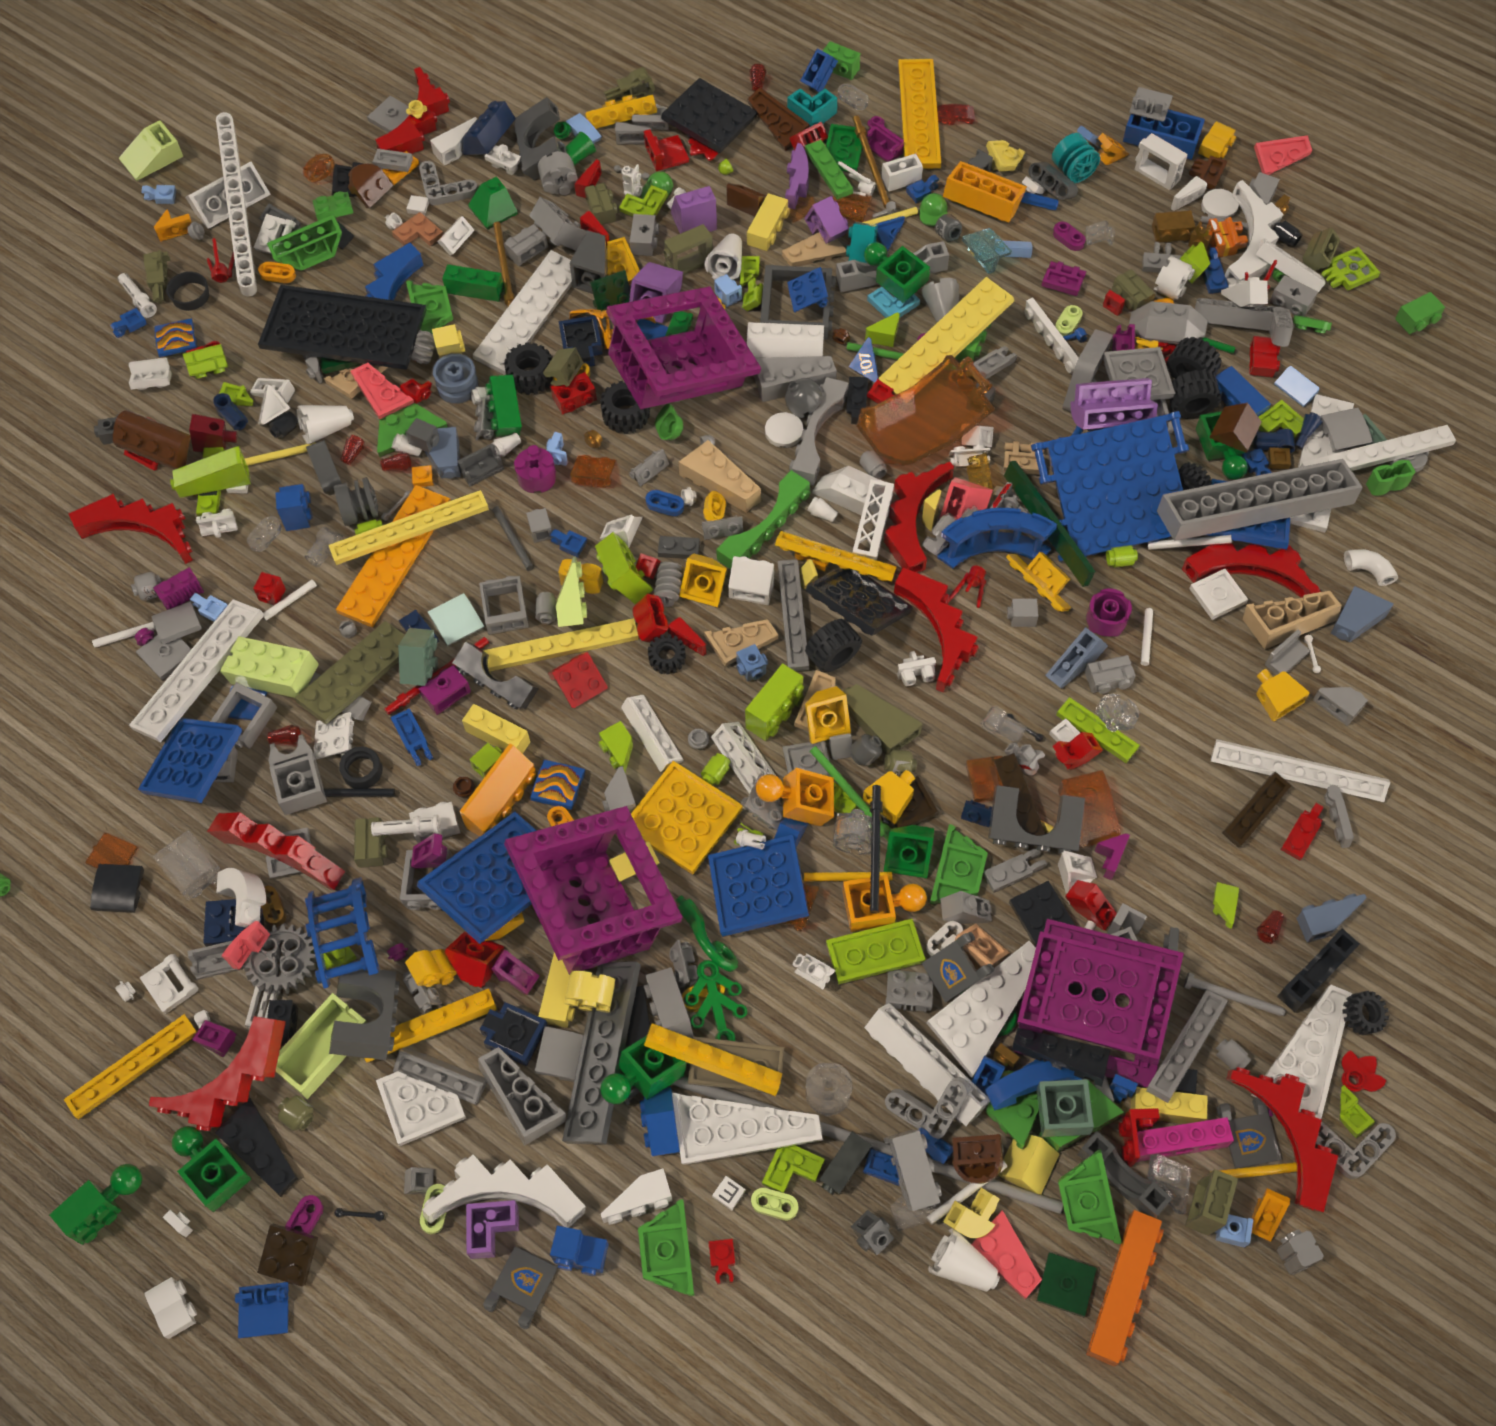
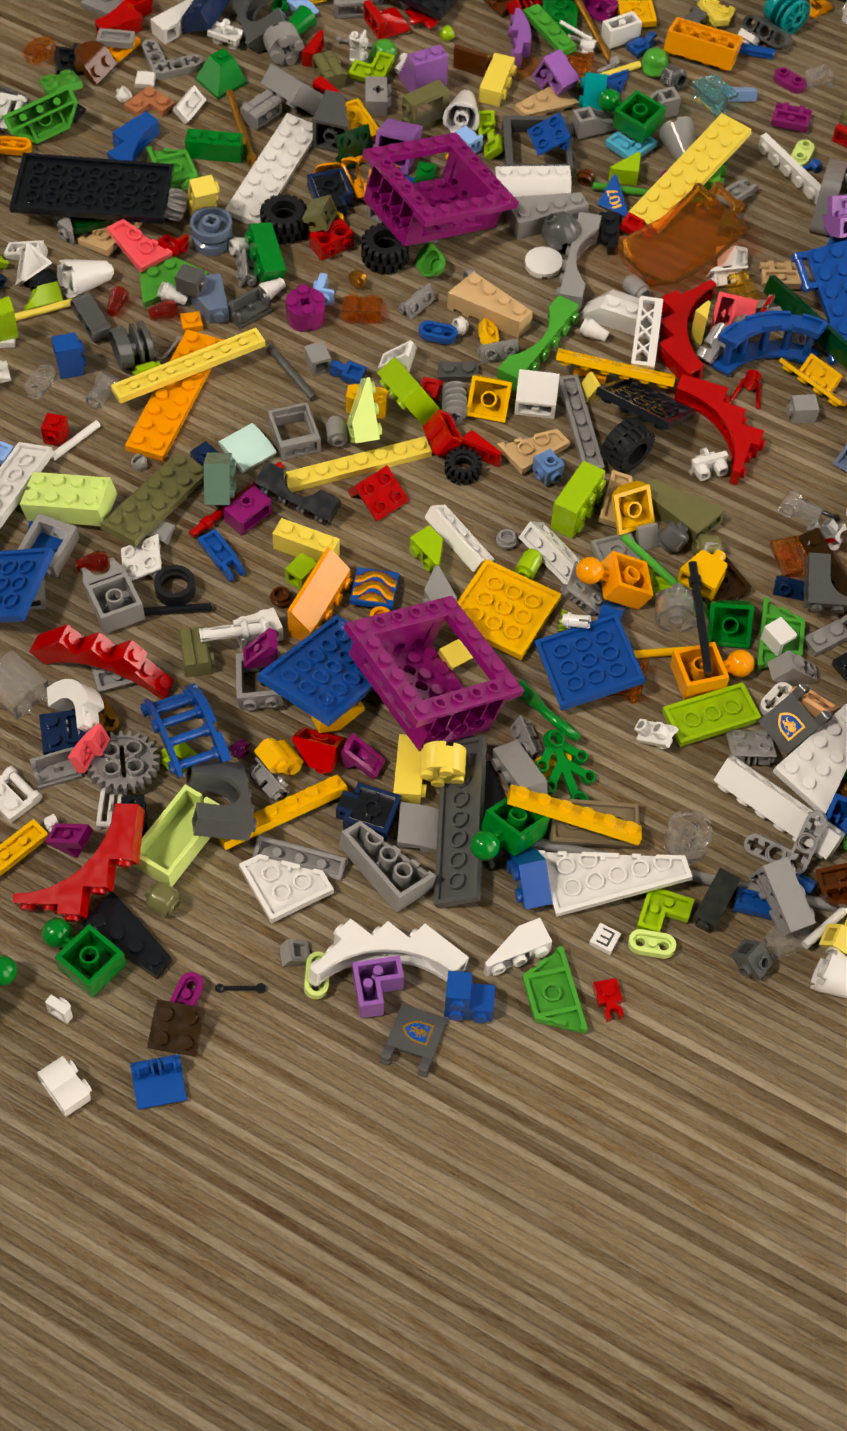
camera: 10 degrees left, 5 degrees down
(281, 440) = (44, 295): none -> lime slope
(954, 871) = (777, 635): none -> white panel

